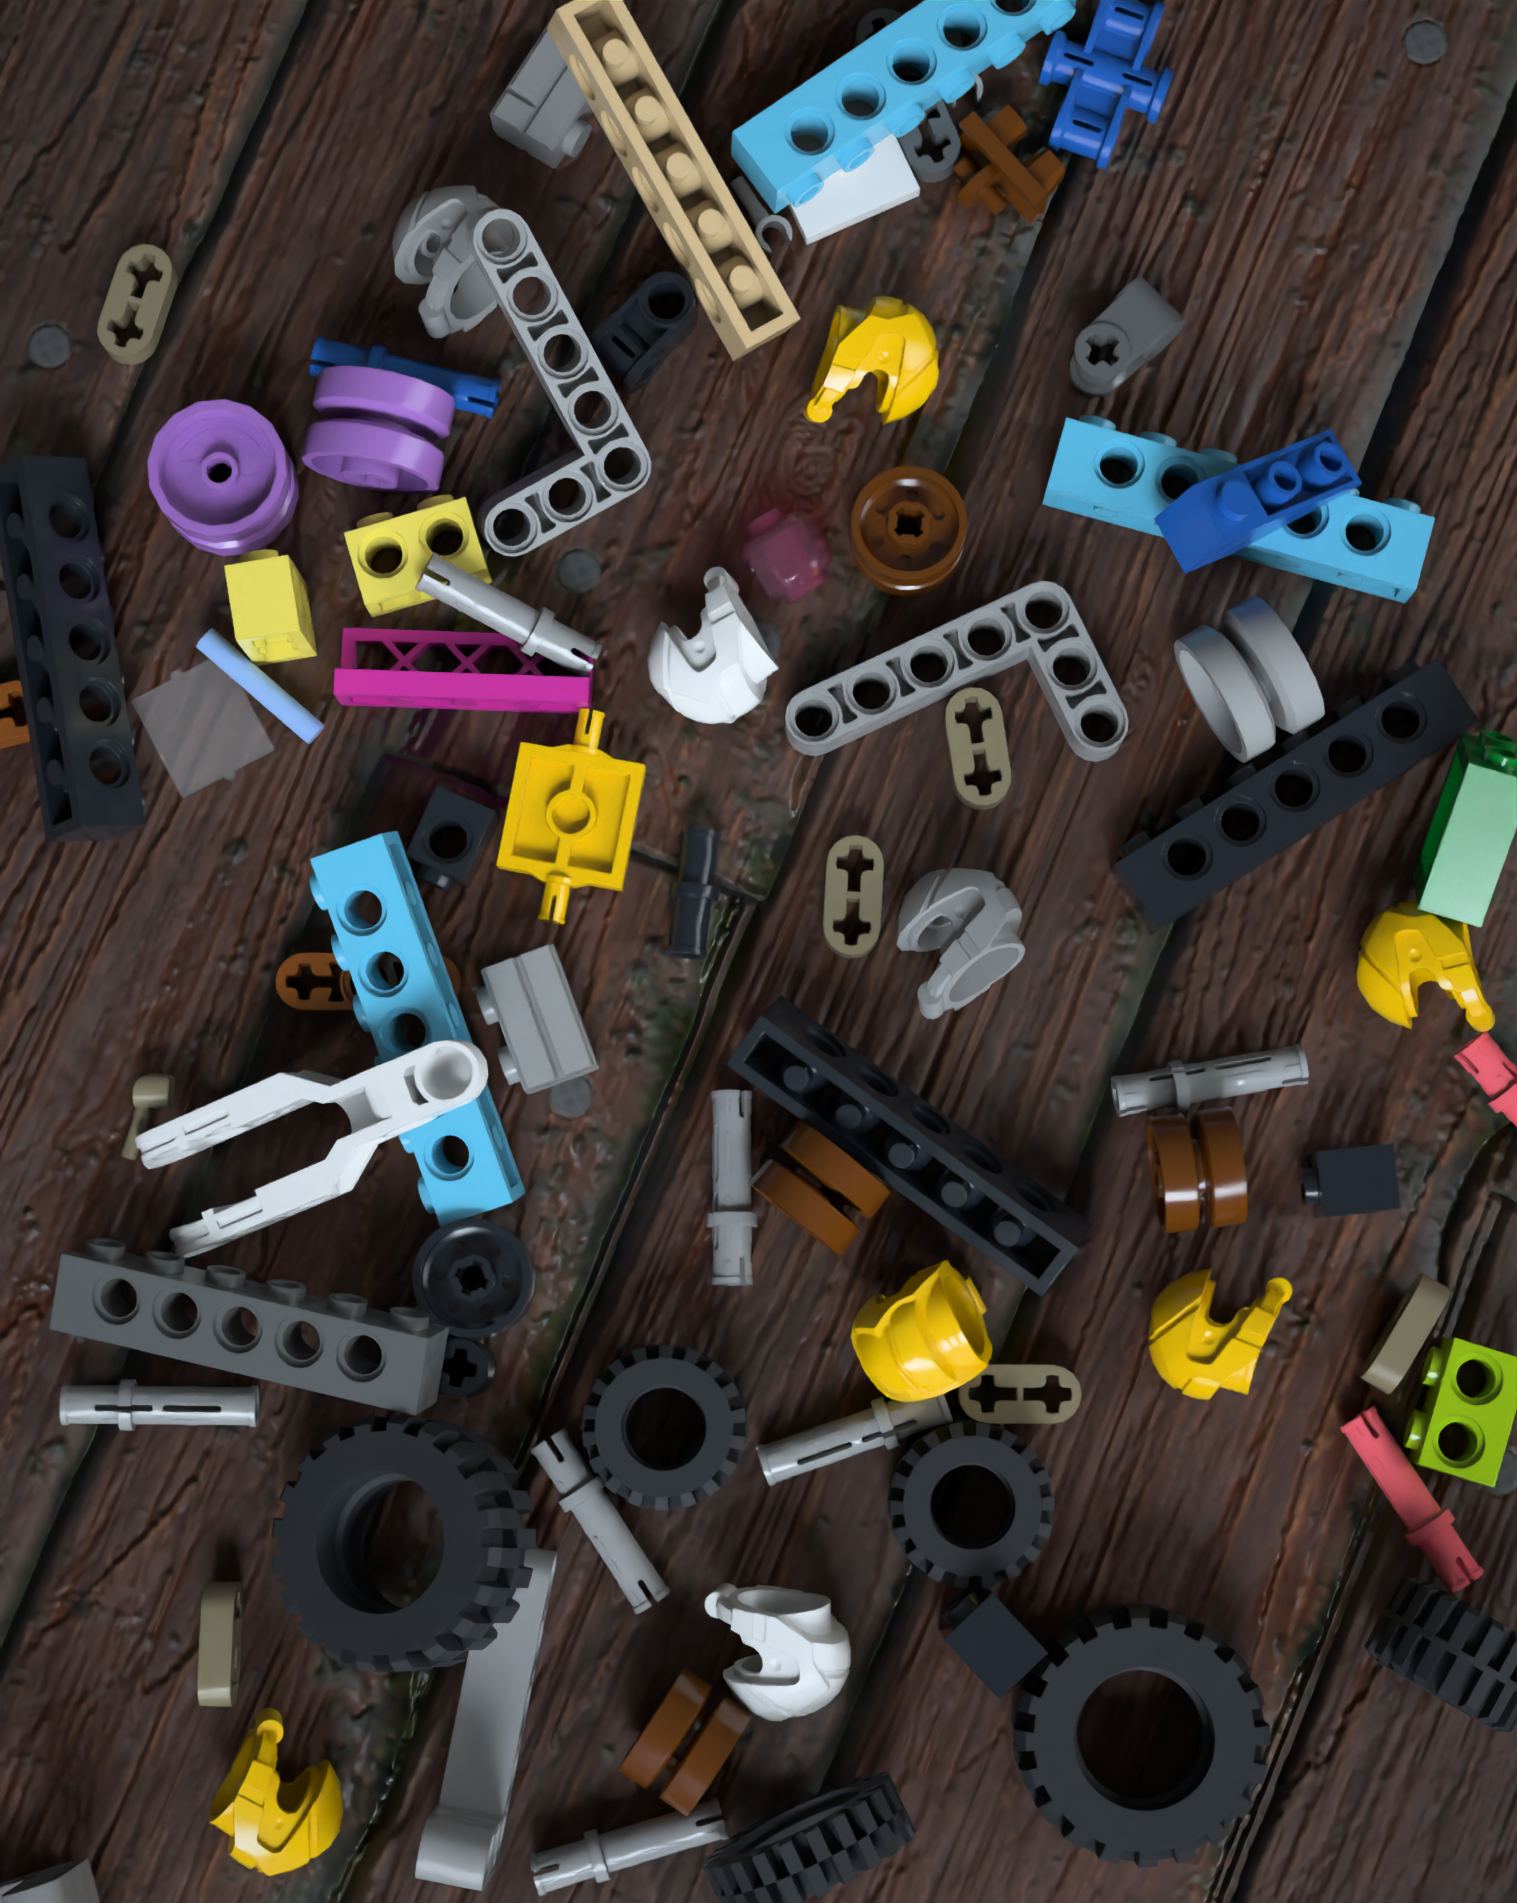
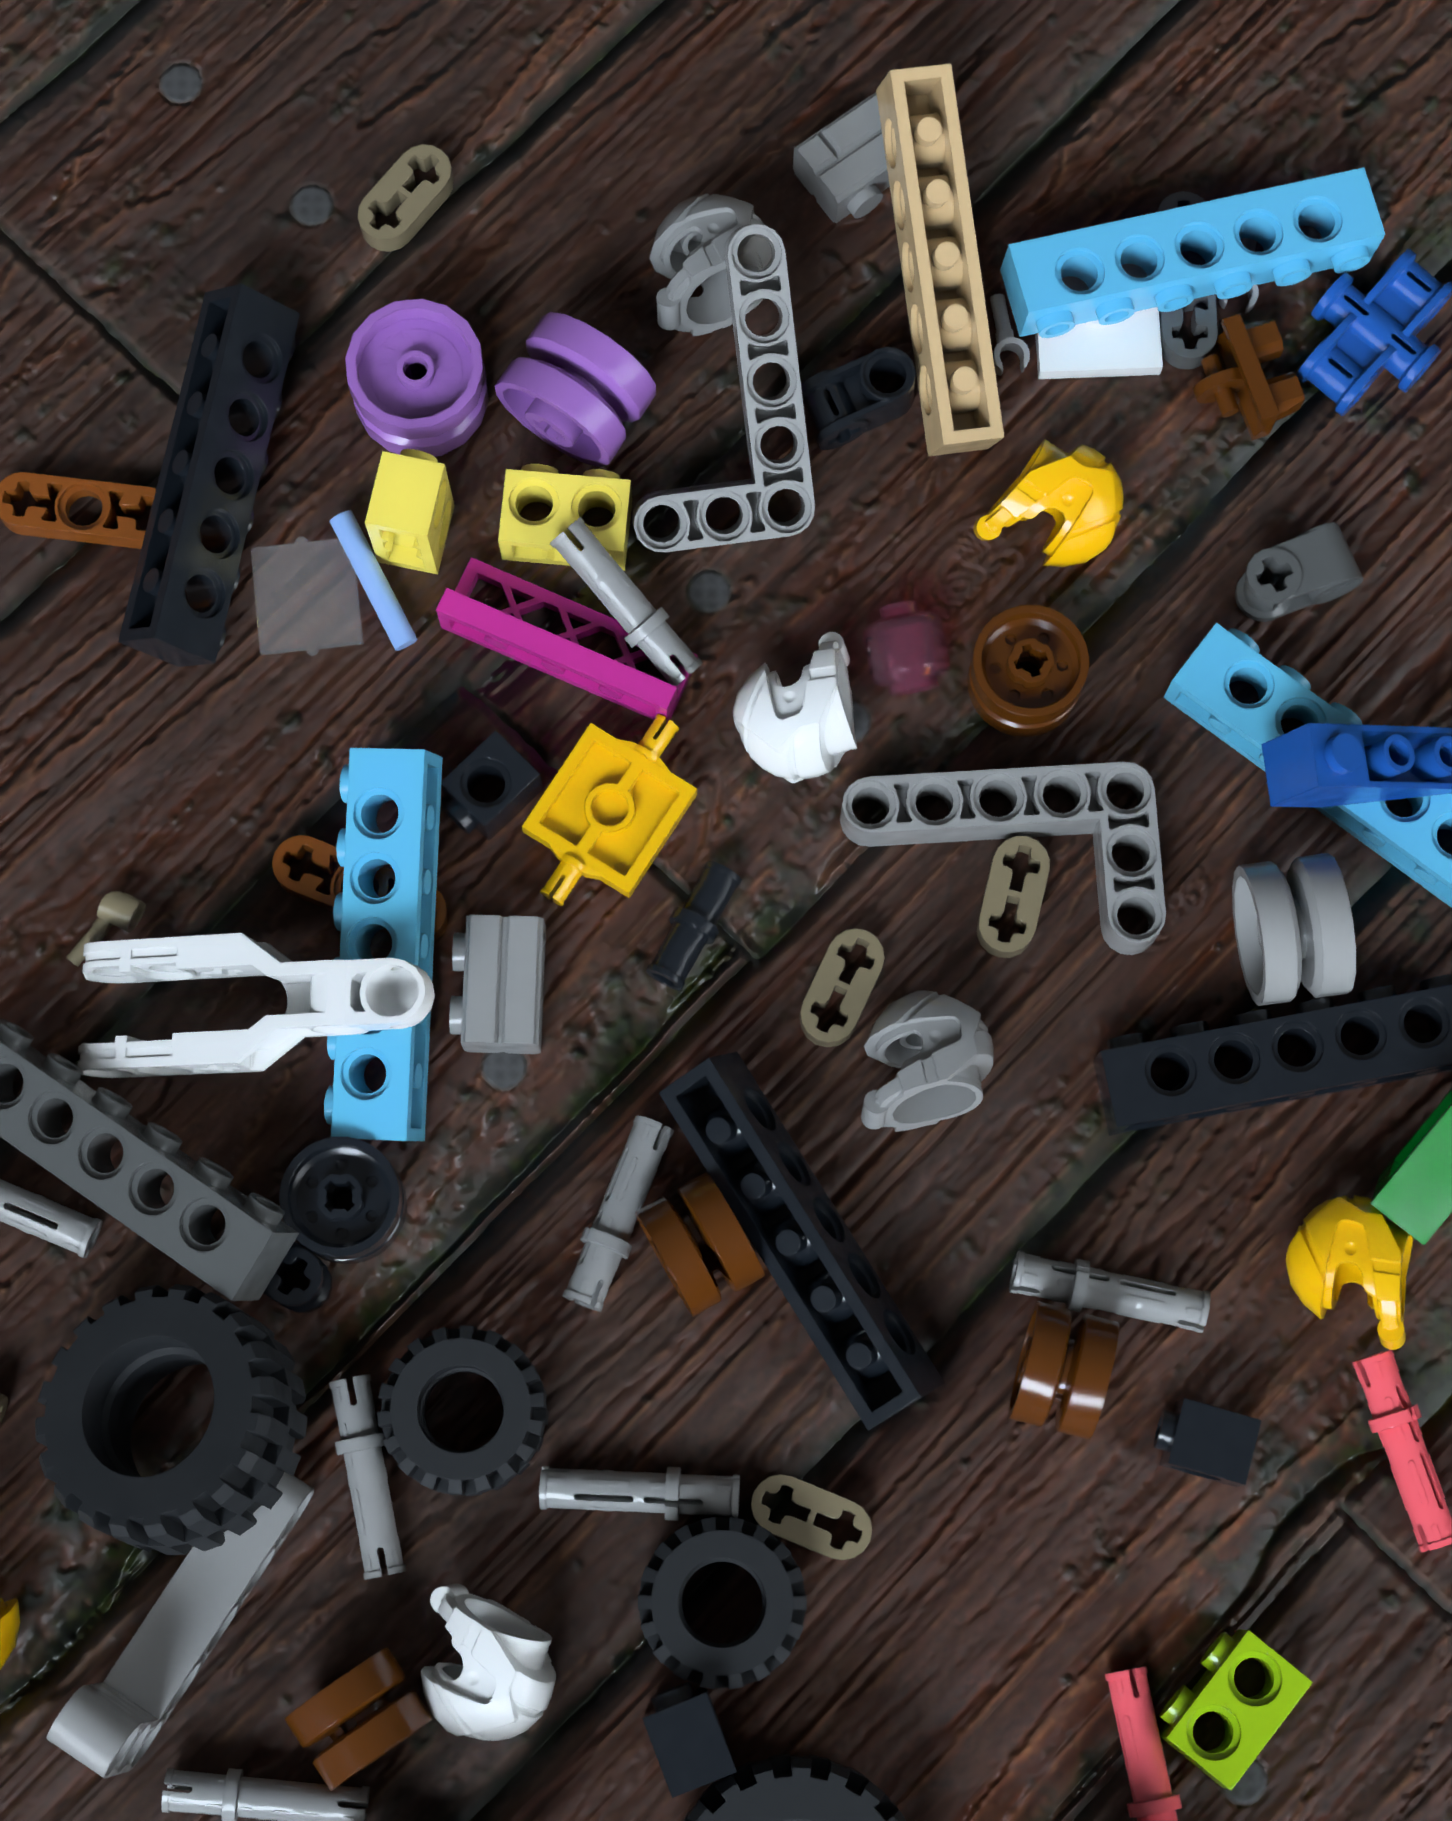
camera: 15 degrees right, 5 degrees down
(469, 391) = (672, 388): blue pin -> none
(923, 1336) = (742, 1422): yellow helmet -> none
(1203, 1354) = (1000, 1549): yellow helmet -> none
(1405, 1333) = (1203, 1608): dark tan beam -> none

